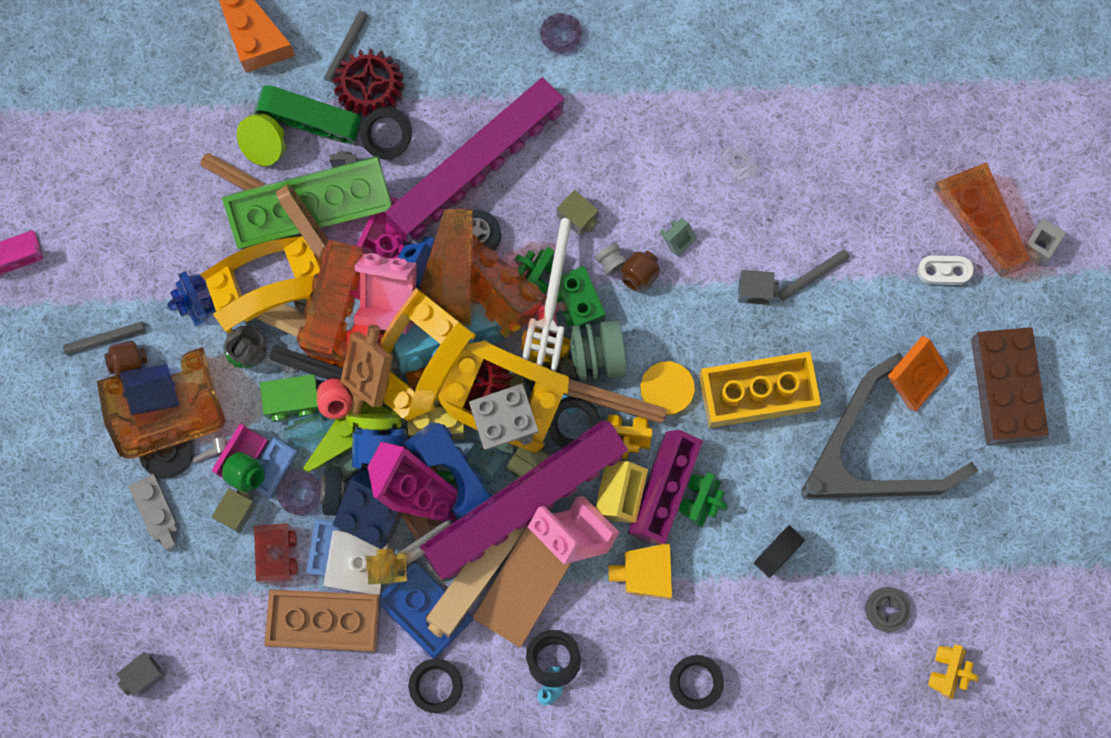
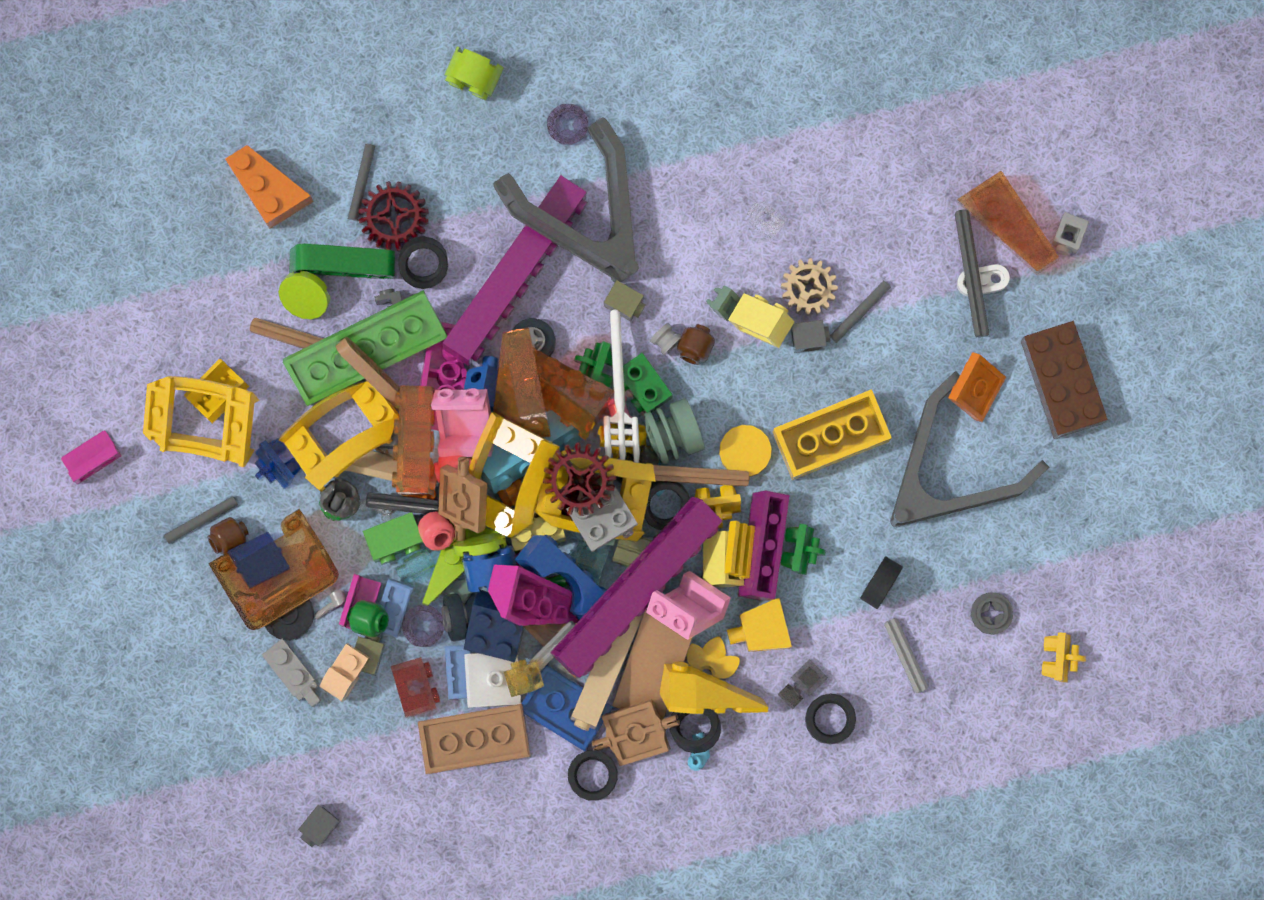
camera: 15 degrees left, 5 degrees up
(150, 213) = (213, 406): none -> yellow bracket
(160, 248) = (237, 419): none -> yellow wedge
(203, 524) = (344, 672): none -> light nougat brick
(490, 651) = (636, 732): none -> medium nougat plate
(493, 383) = (593, 496): none -> dark red gear
(558, 619) = (692, 691): none -> yellow wedge
(573, 165) = (612, 256): none -> dark grey piece
(586, 591) = (713, 658): none -> yellow plate
(642, 486) = (741, 547): none -> yellow tile
(681, 635) = (807, 679): none -> clear smoke plate
(712, 259) = (761, 319): none -> light yellow piece
(774, 245) = (820, 291): none -> tan gear
(789, 633) = (906, 655): none -> light grey axle
(935, 259) = (971, 273): none -> dark grey axle

